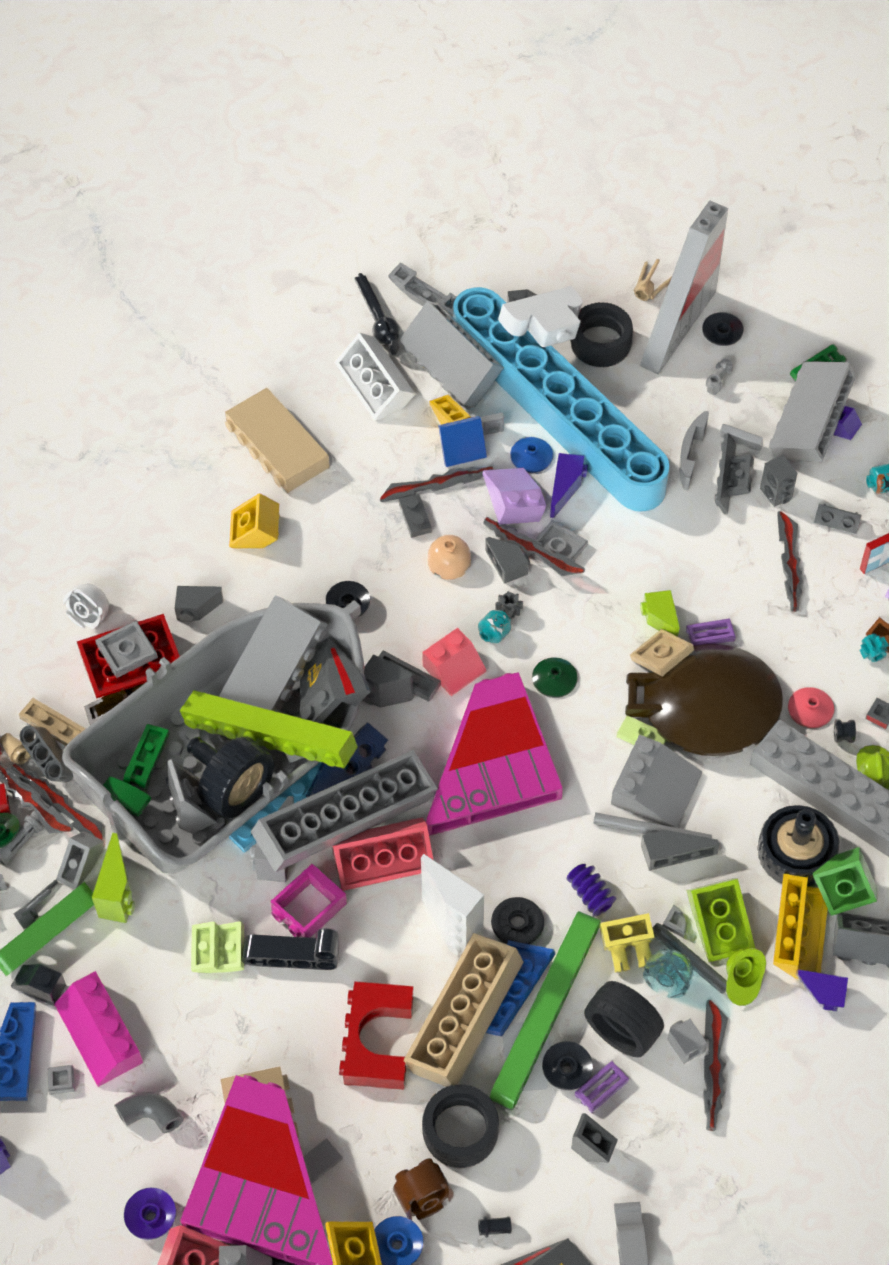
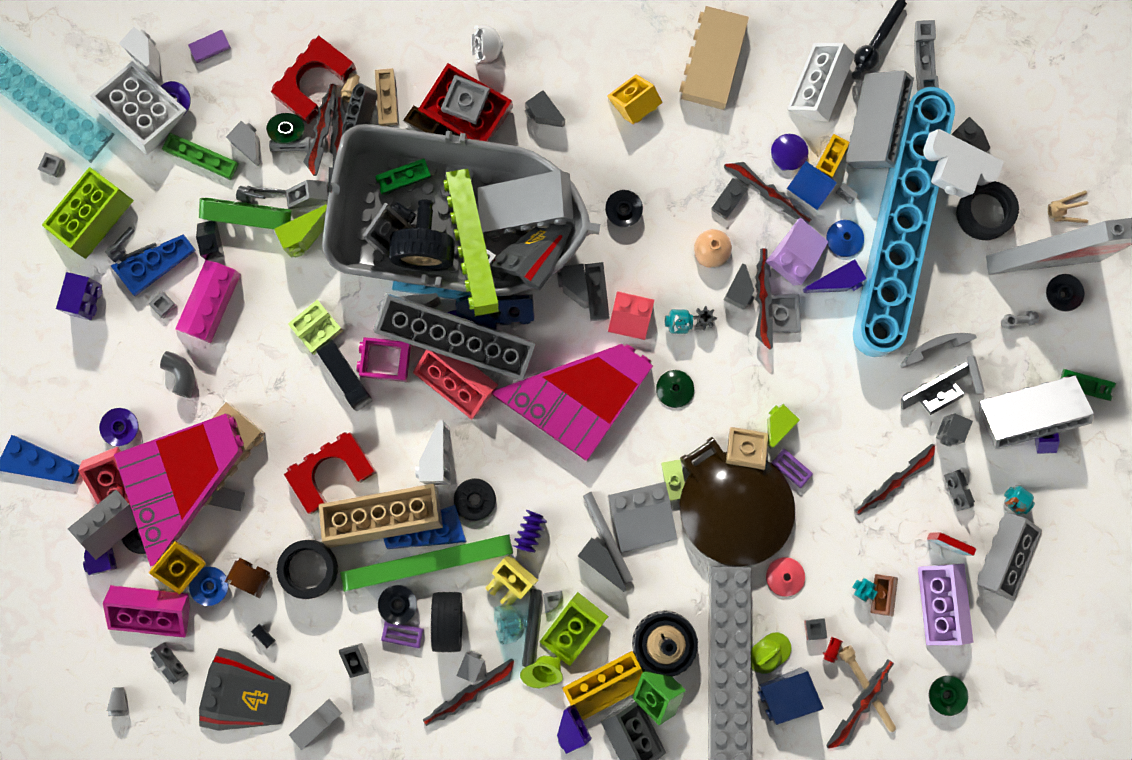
camera: 50 degrees right, 25 degrees up
(129, 796) = (363, 187): green slope -> none
(415, 443) = (789, 152): none -> dark purple dish
(844, 730) = (781, 614): black wheel -> none

